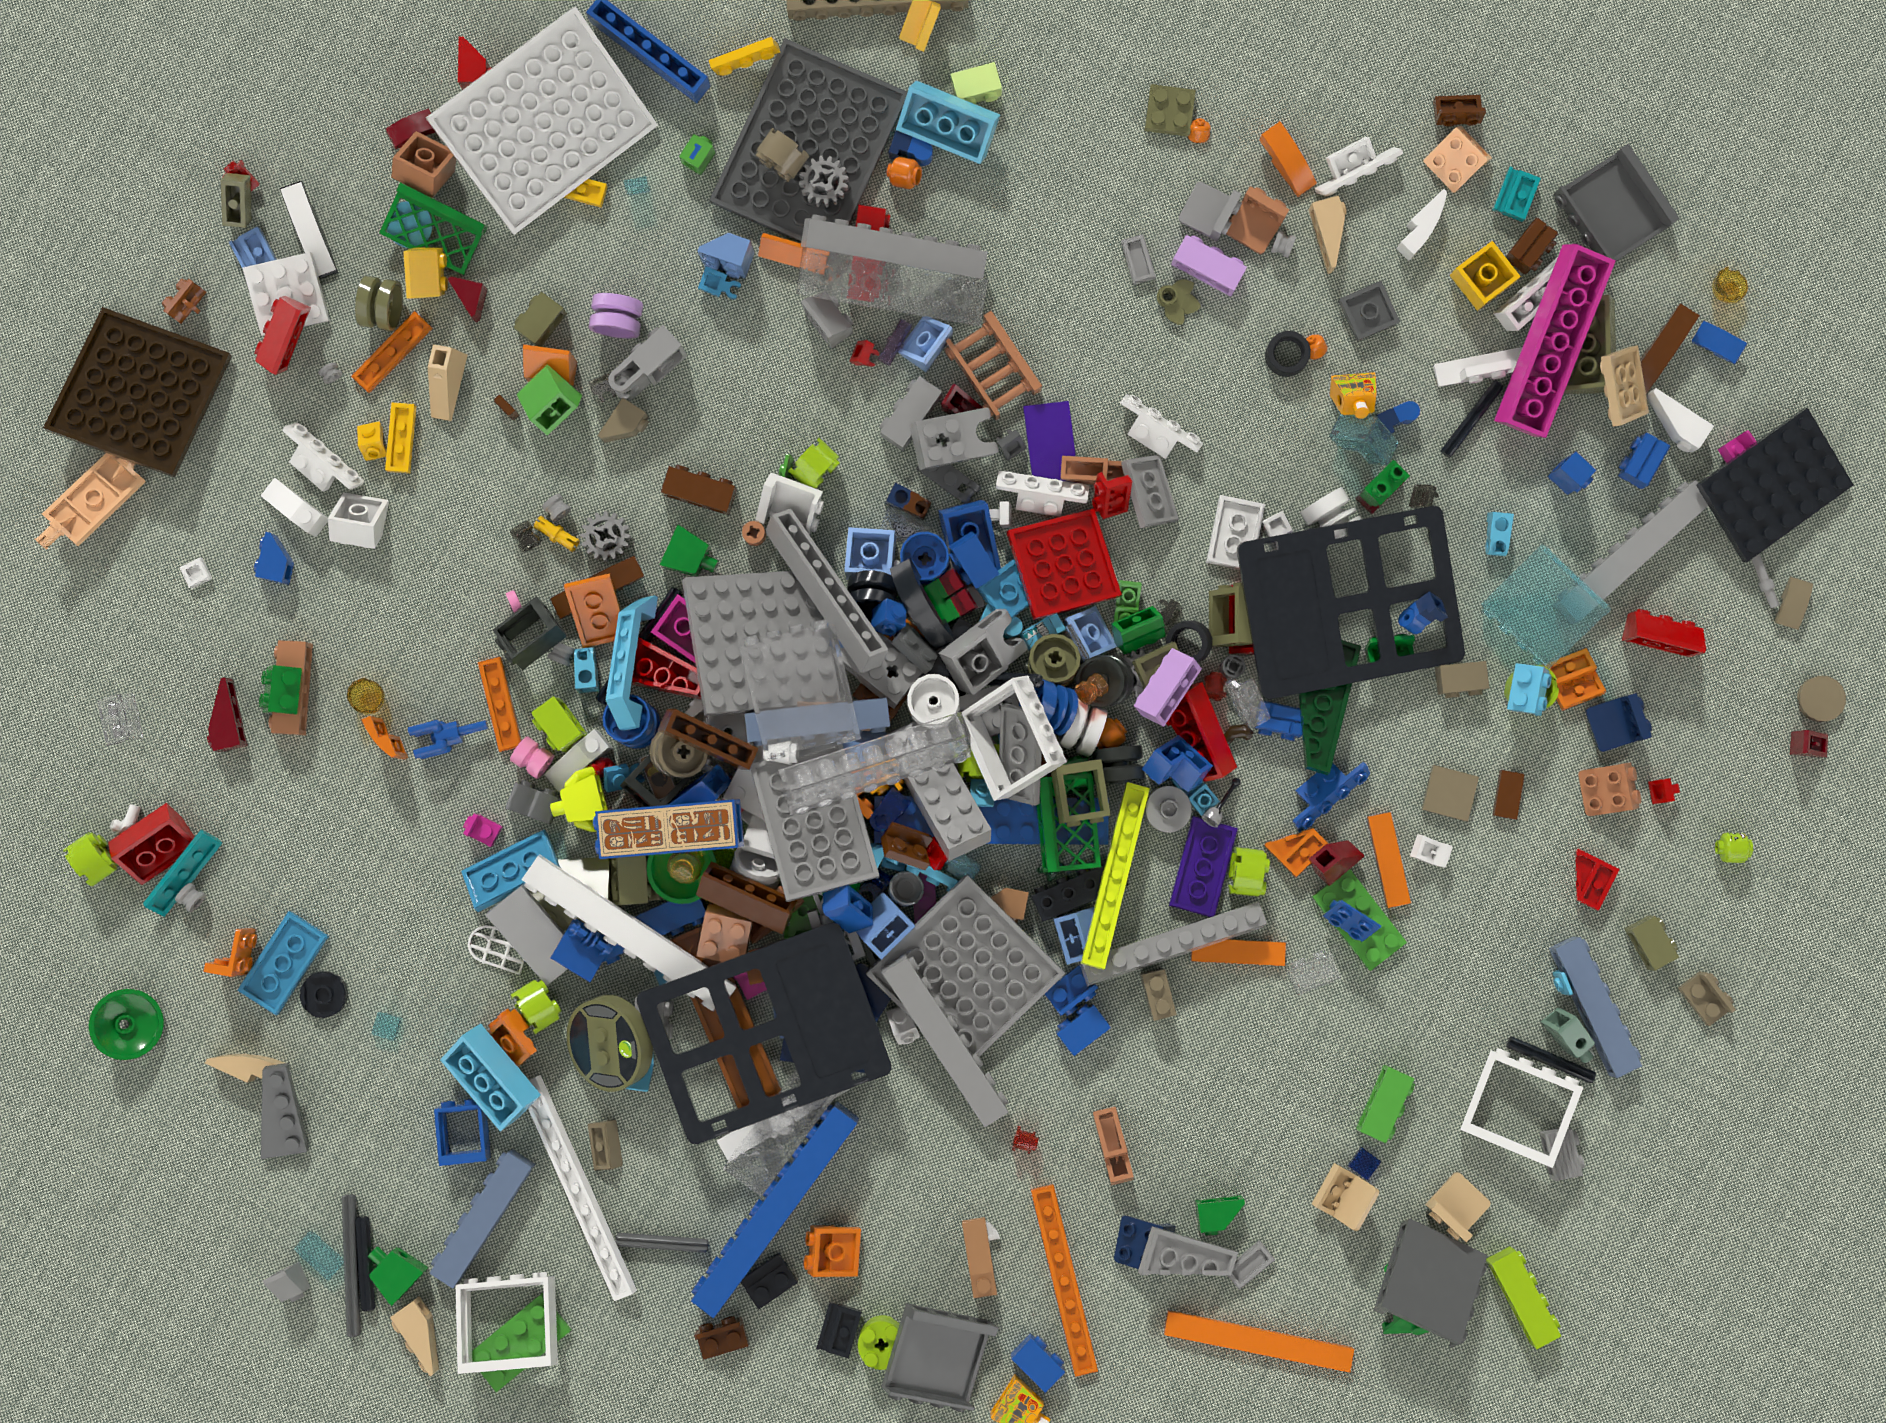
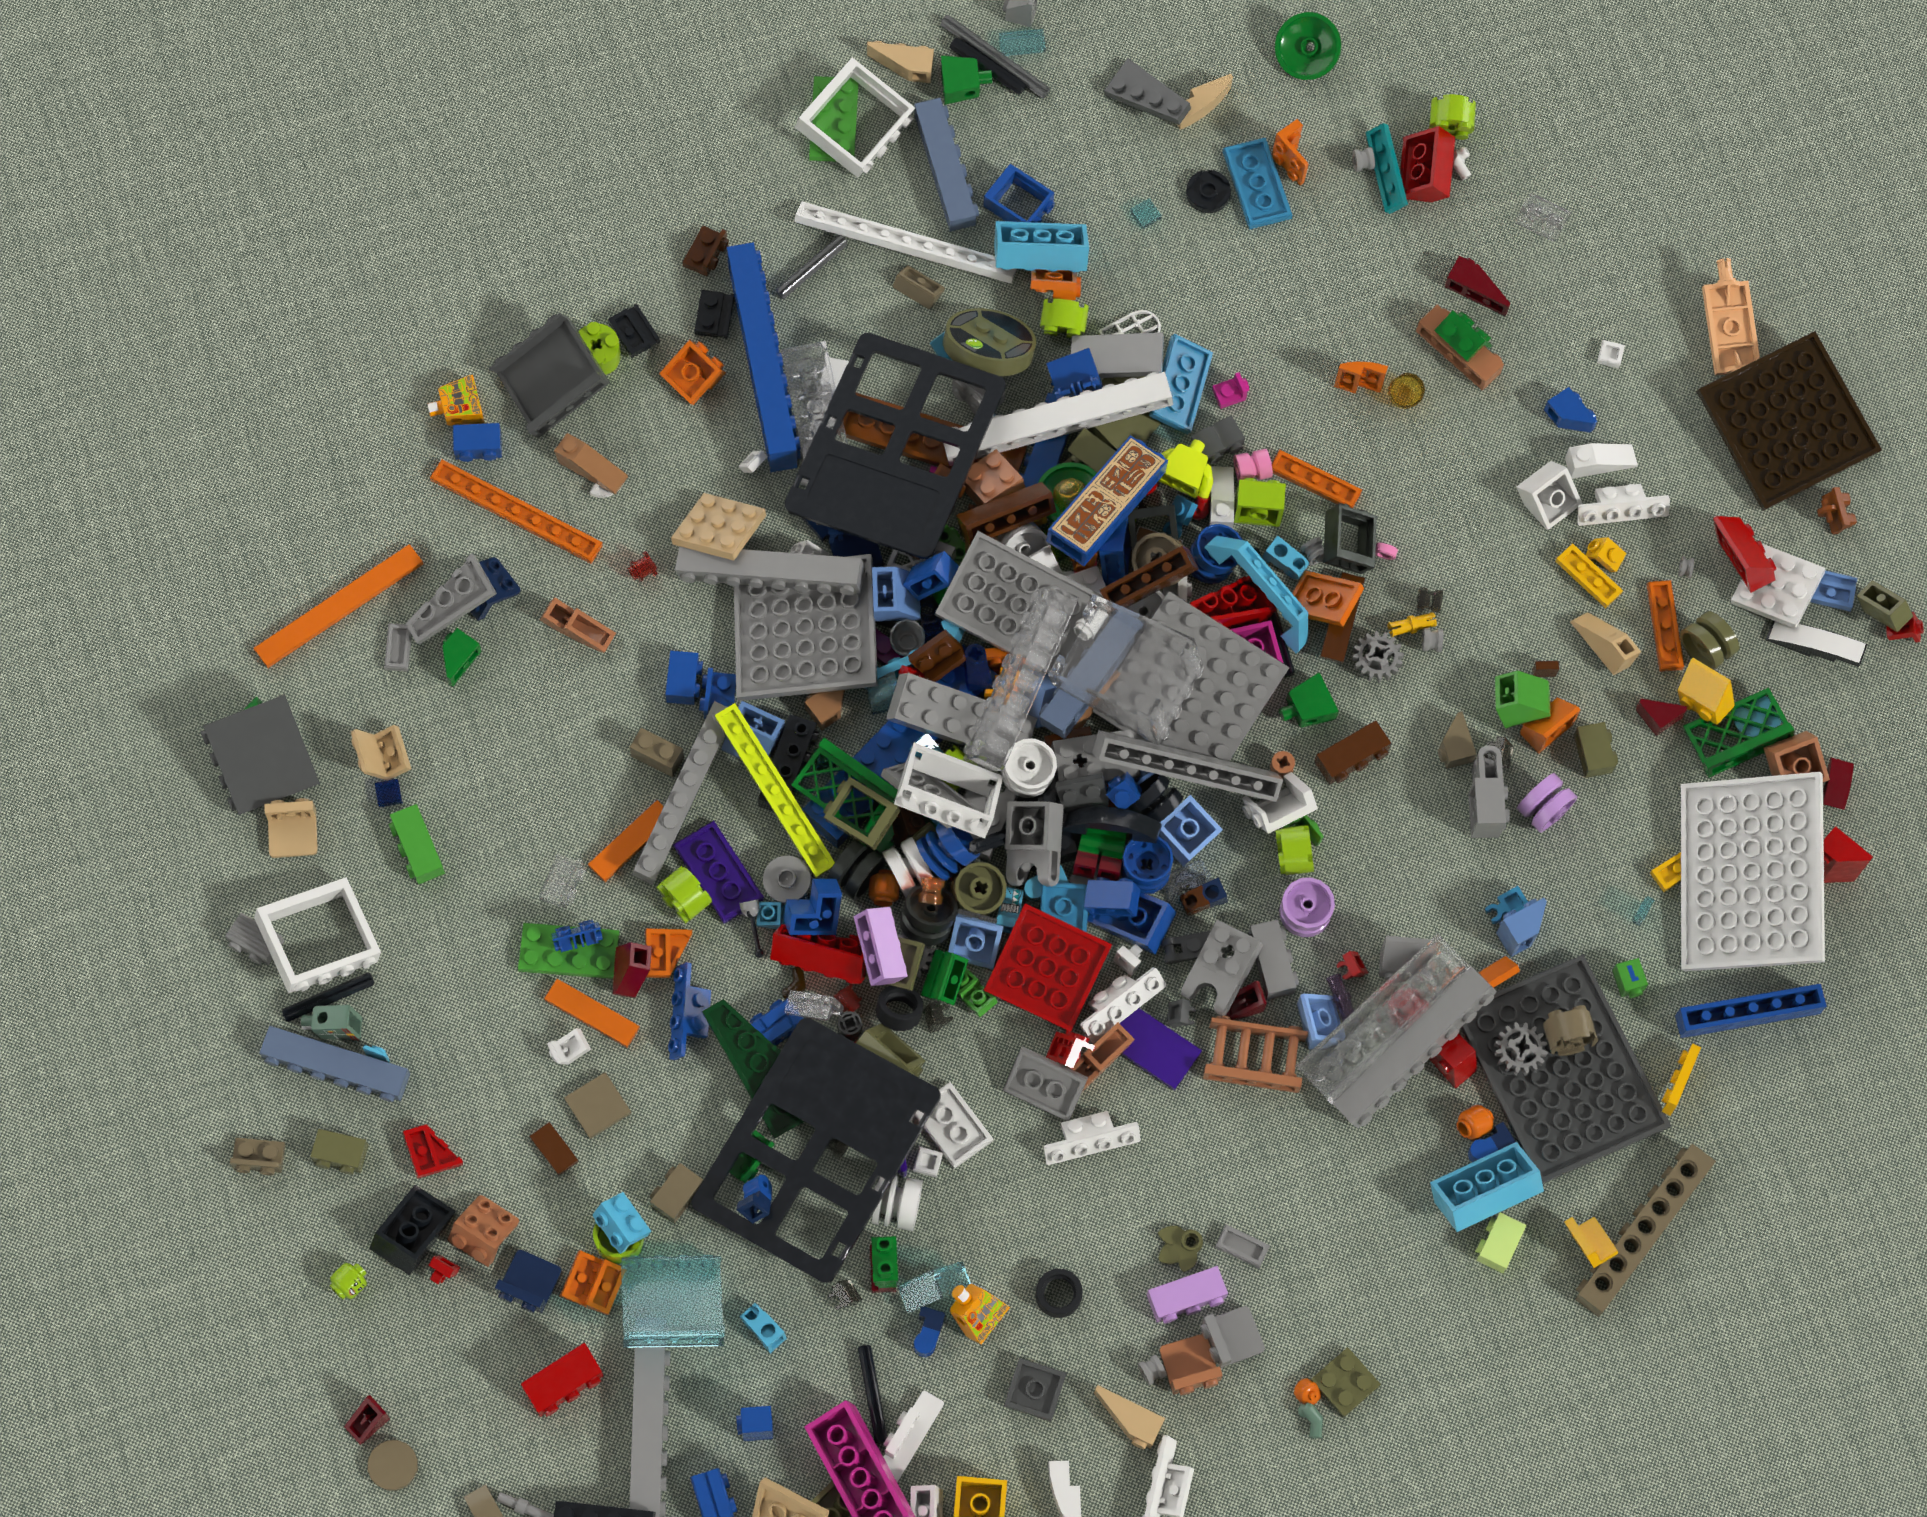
camera: 125 degrees right, 15 degrees down
(442, 736) = (1326, 418): blue plant -> none
(851, 407) = (1307, 893): none -> lavender wheel
(865, 1136) = (752, 461): none -> white tile
(944, 1111) = (718, 526): none -> tan plate
(1214, 110) = (1314, 1417): none -> sand green arm
(1288, 159) = (1219, 1437): orange slope -> none
(1317, 345) = (1045, 1324): orange piece -> none
(1523, 1297) = (181, 816): lime brick -> none
(1656, 838) = (411, 1230): none -> black slope

